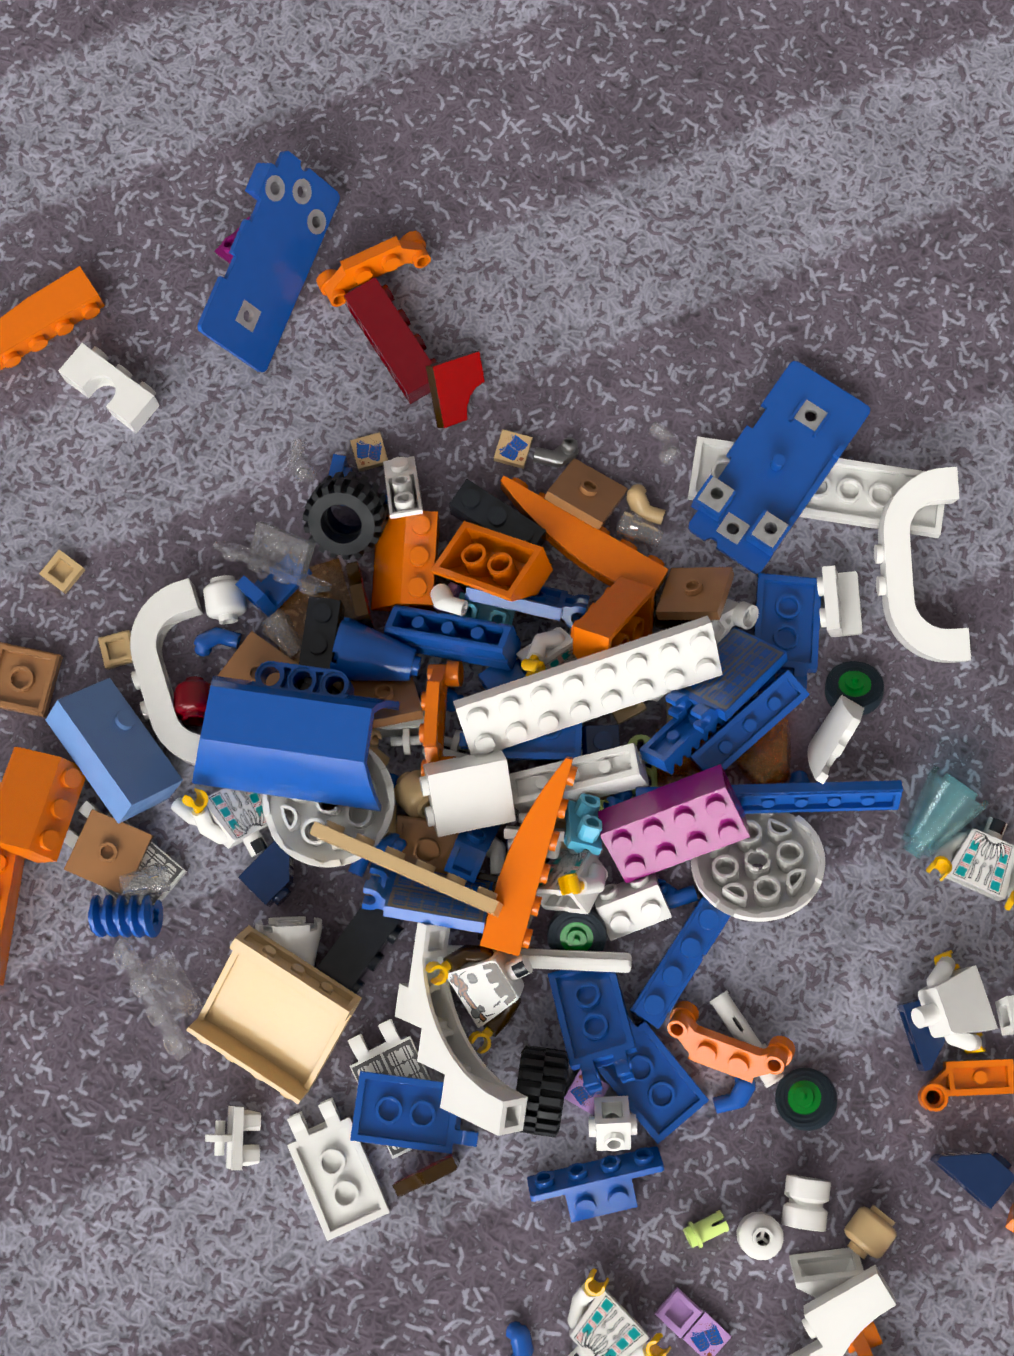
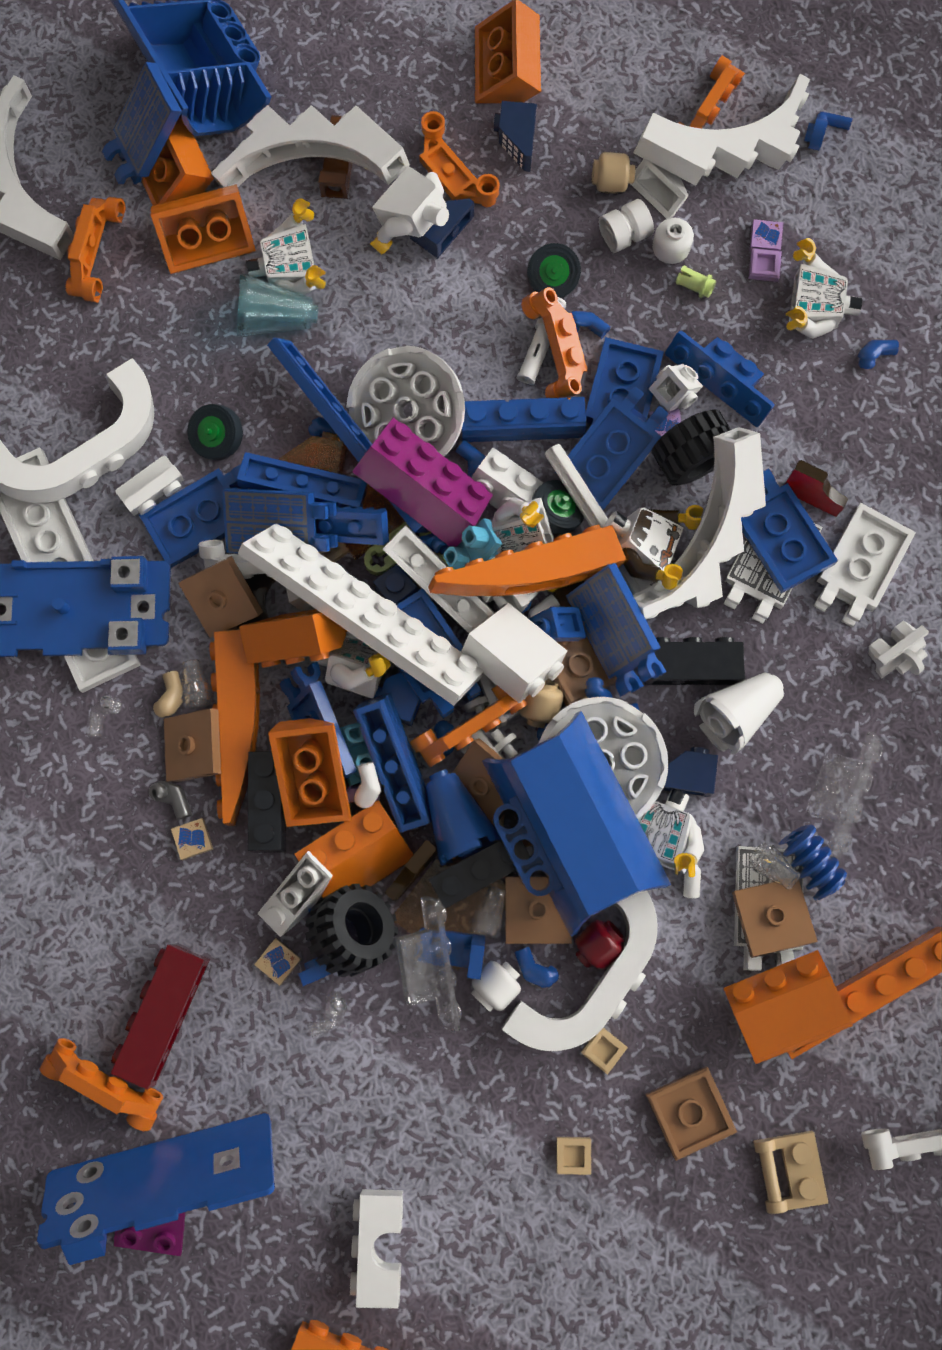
camera: 130 degrees left, 0 degrees up
(113, 750) = (692, 977): medium blue brick -> none
(274, 1014) = (794, 684): panel -> none
(420, 872) = (614, 666): tan plate -> none
(452, 385) = (169, 928): red tile -> none
(833, 737) = (267, 416): white slope -> none

